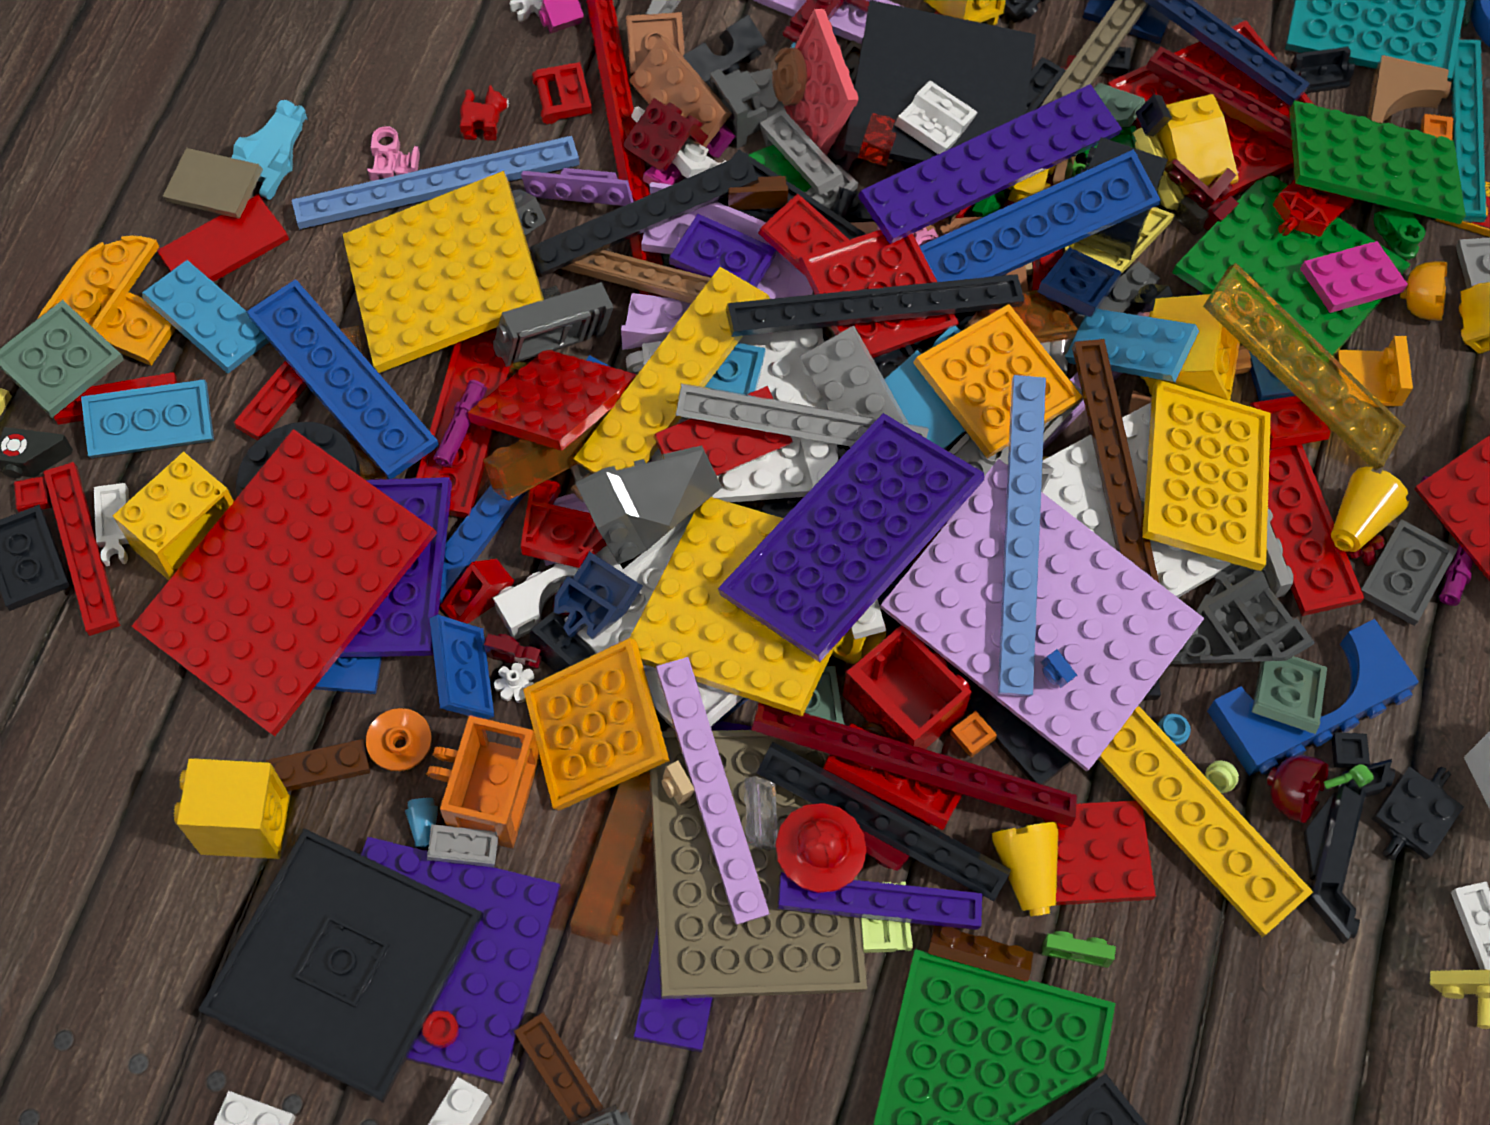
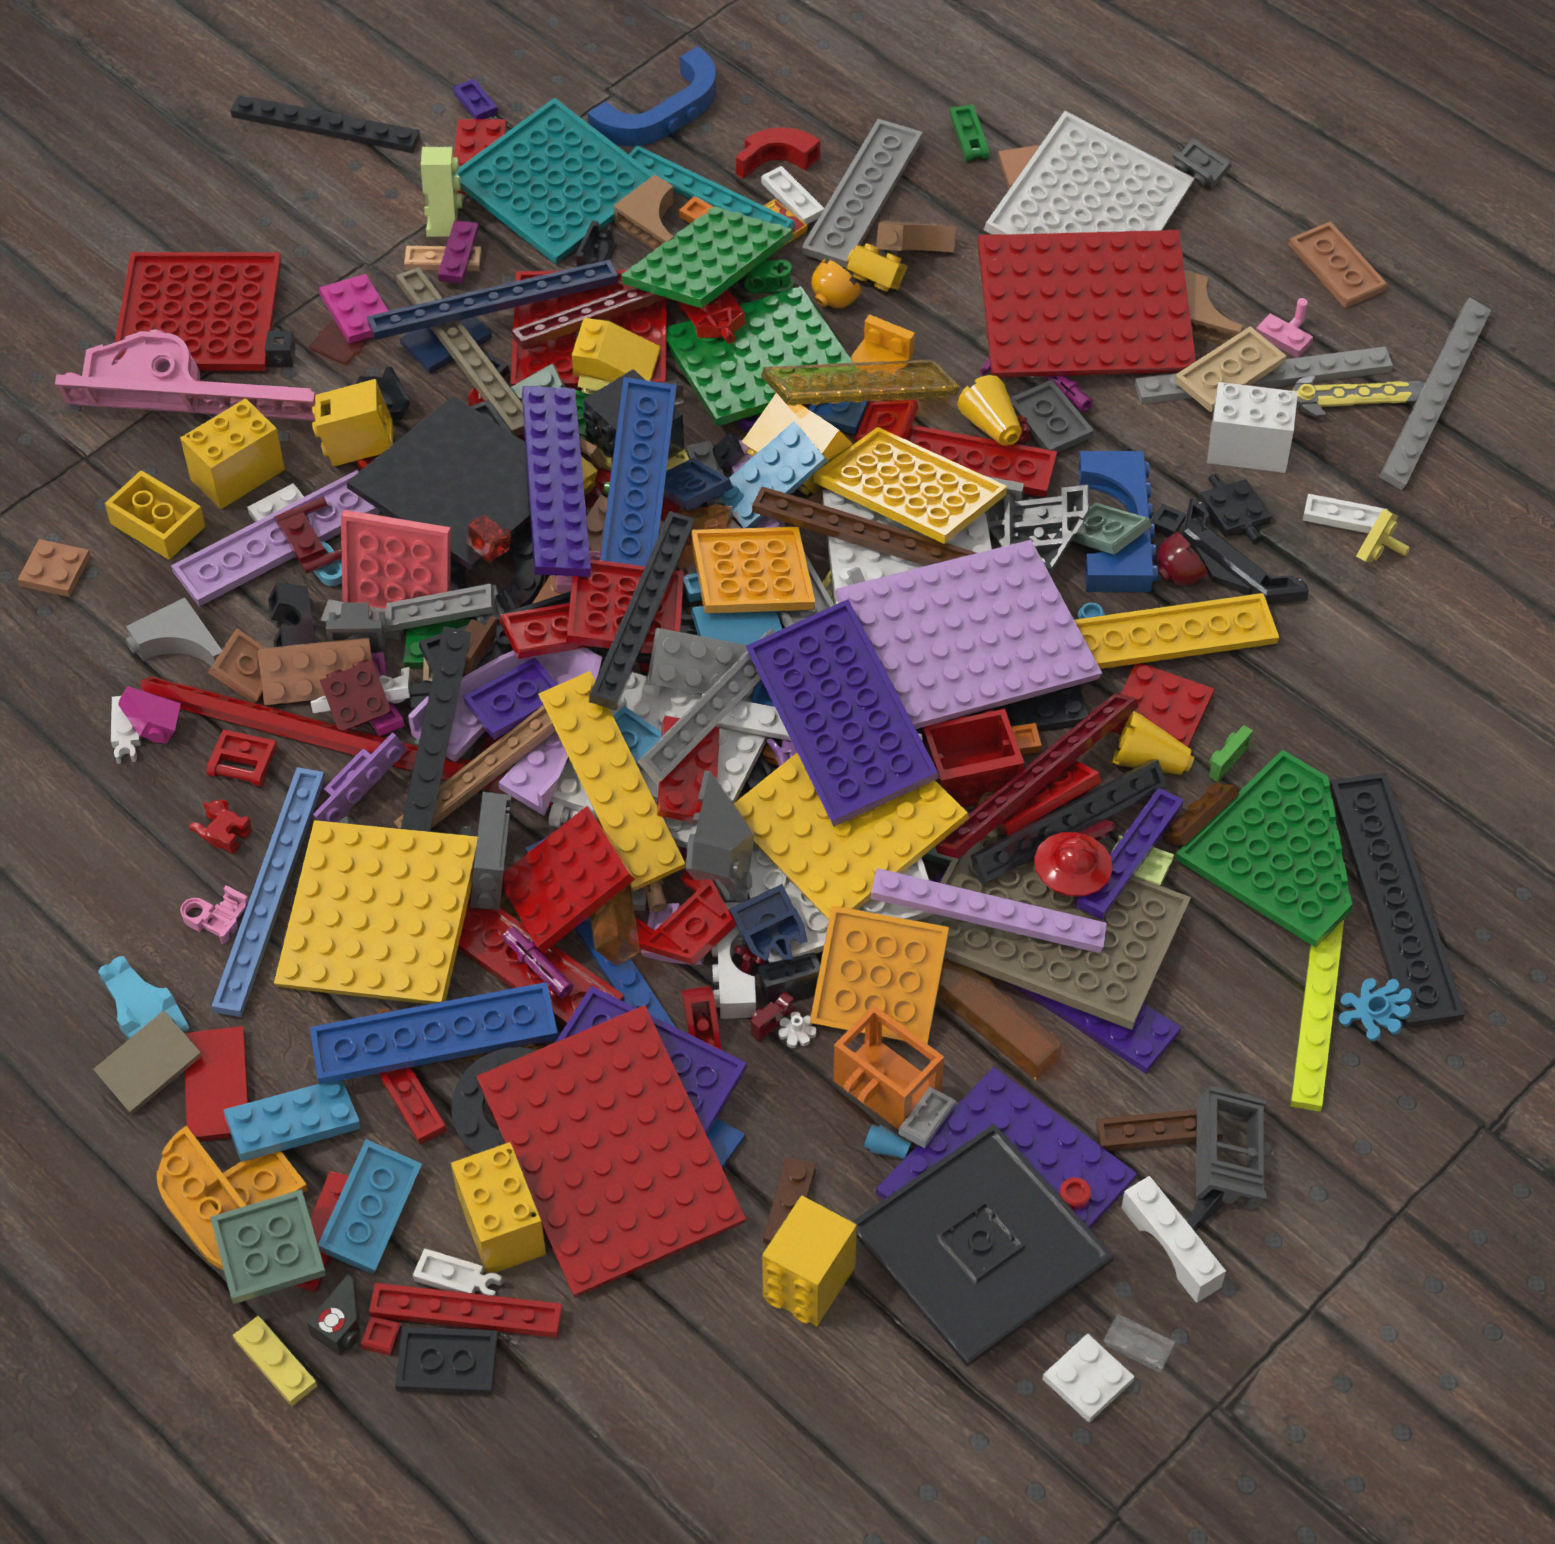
camera: 60 degrees left, 10 degrees down
(394, 726) = (803, 1118): orange dish -> none
(461, 667) = (769, 1052): blue tile -> none
(677, 783) = (970, 931): tan plate -> none
(760, 813) = (1009, 889): clear plate -> none
(790, 76) = (361, 580): nougat tile -> none
(935, 118) = (490, 493): white slope -> none
(1022, 536) = (907, 605): medium blue plate -> none
(1057, 669) = (1024, 640): blue plate -> none
(1153, 115) = (578, 362): black plate -> none
(1198, 191) = (662, 364): dark red bracket -> none
(1219, 211) = (681, 371): dark red plate -> none
(1222, 775) = (1144, 601): yellowish green plate -> none
(1353, 276) = (796, 320): dark pink plate -> none
(1359, 774) = (1195, 518): bright green hand -> none

